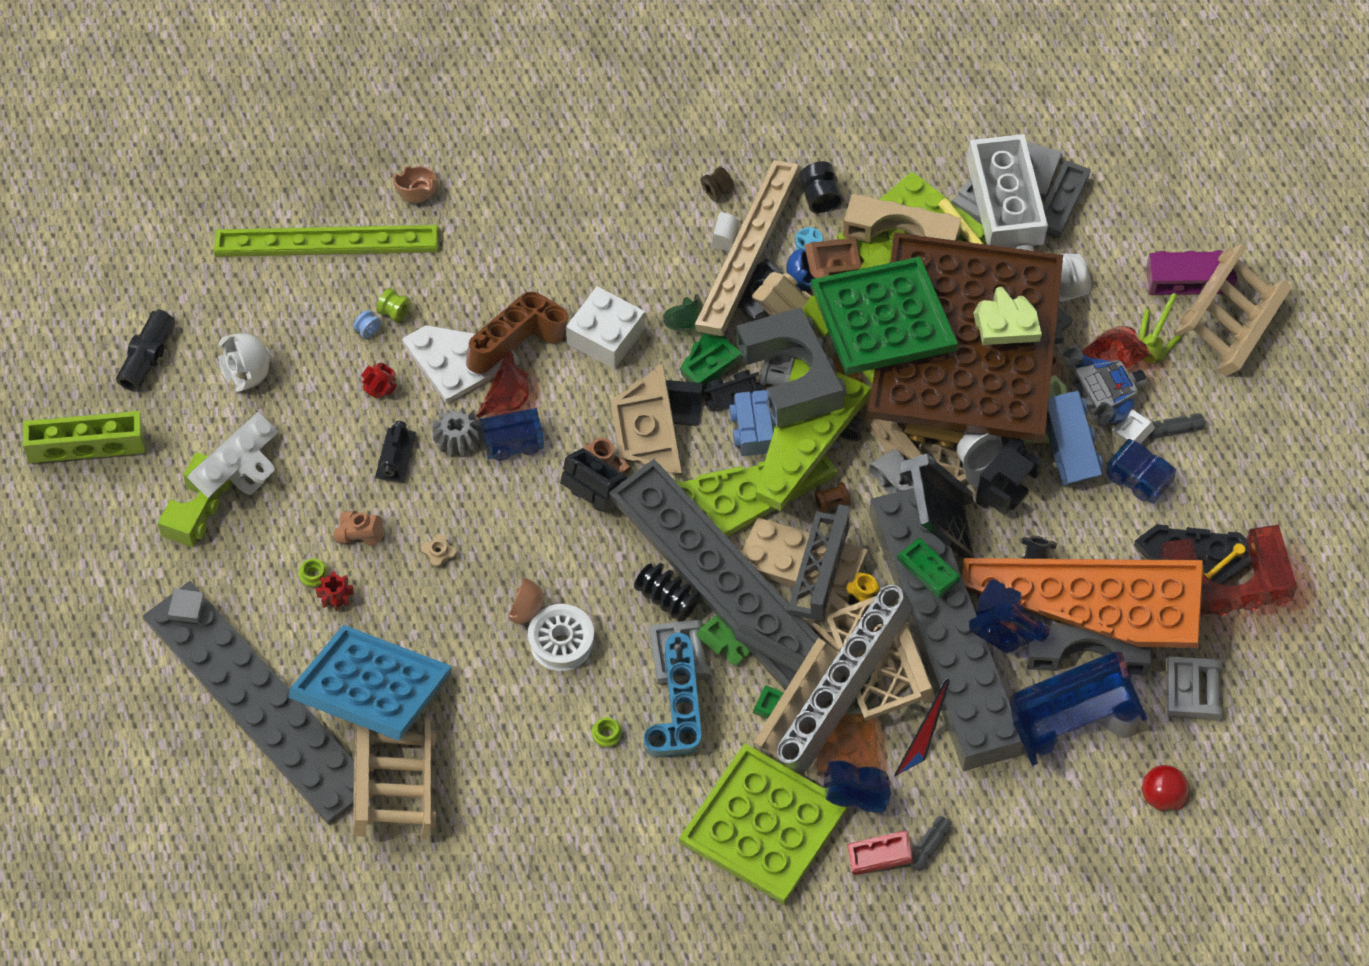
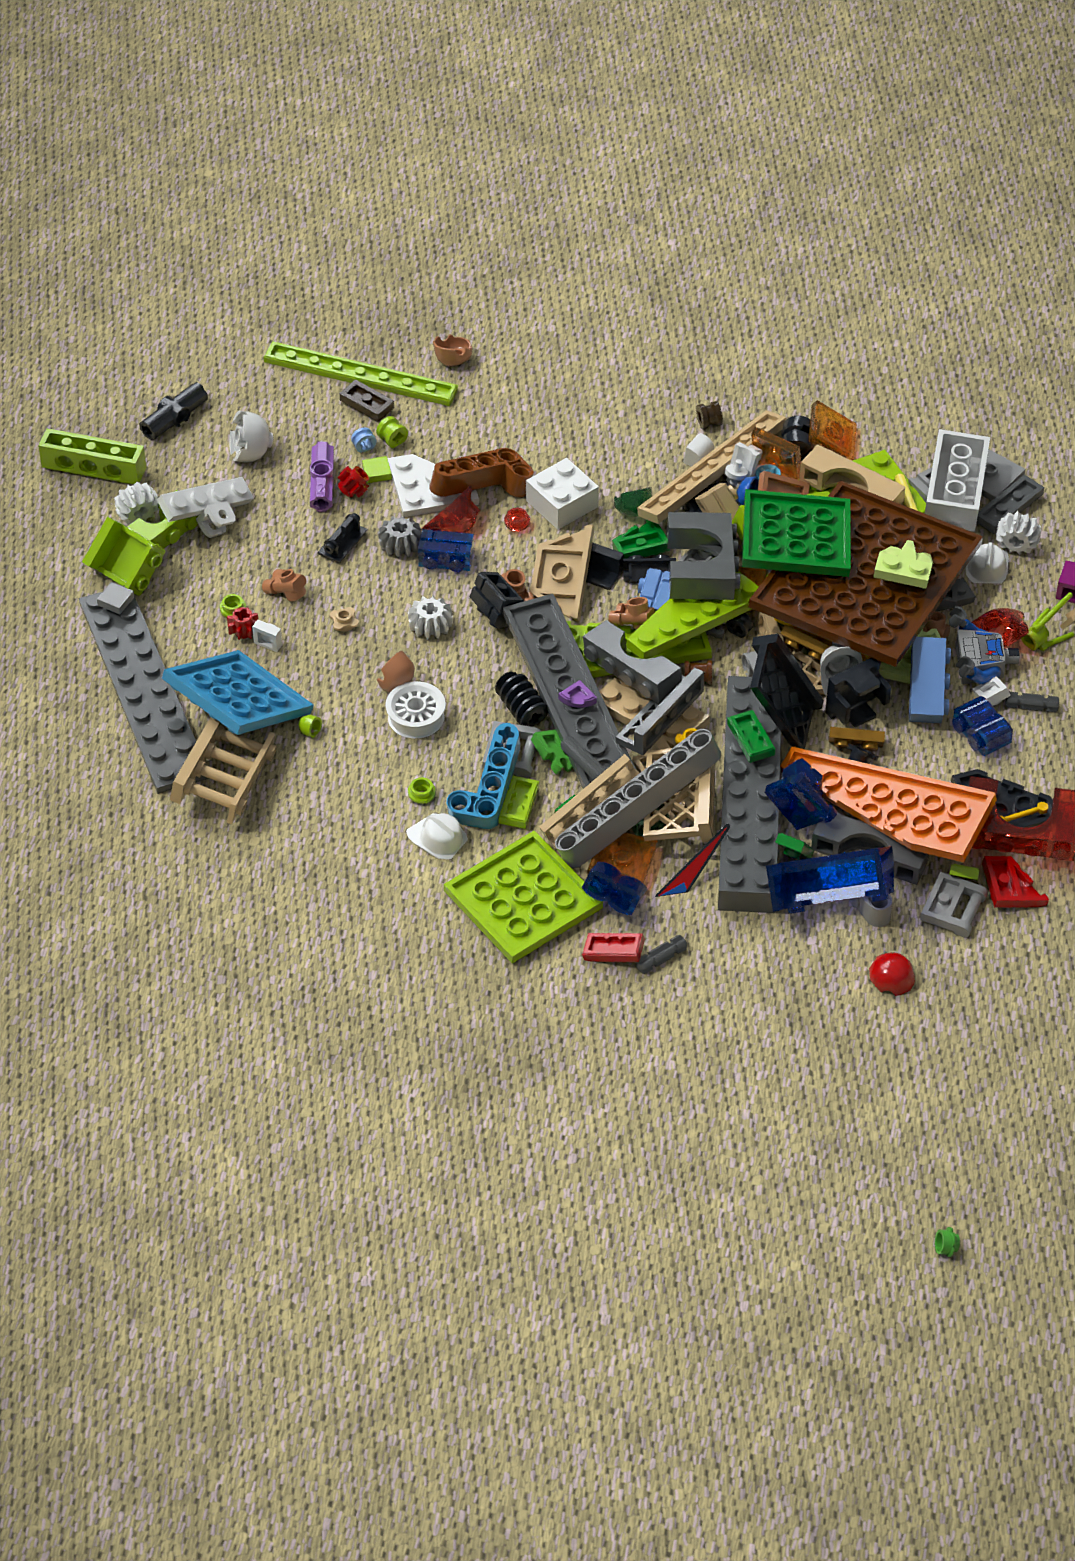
camera: 20 degrees right, 10 degrees down
(158, 480) = (136, 502): none -> white gear
(175, 551) = (124, 556): none -> lime panel
(347, 395) = (322, 476): none -> medium lavender piece
(349, 273) = (366, 400): none -> dark brown plate
(367, 597) = (267, 635): none -> white plate
(395, 354) = (377, 469): none -> lime tile
(457, 691) = (308, 722): none -> lime hinge
(525, 530) = (430, 617): none -> white gear
(569, 364) = (517, 519): none -> clear red plate
(644, 778) = (438, 835): none -> white piece
(714, 713) = (519, 802): none -> lime plate
(728, 572) = (577, 696): none -> medium lavender tile
(742, 452) = (633, 612): none -> nougat plate
(781, 238) = (742, 463): none -> white hips
(800, 528) = (651, 677): none -> dark grey arch
(812, 213) = (778, 453): none -> clear orange plate
(853, 168) = (832, 430): none -> clear orange plate
(1011, 529) = (867, 738): none -> pearl gold plate
(1017, 678) = (794, 847): none -> green plate
(1088, 233) = (1018, 532): none -> white gear
(1203, 650) = (964, 872): none -> lime tile
(1239, 646) = (1010, 885): none -> red wing

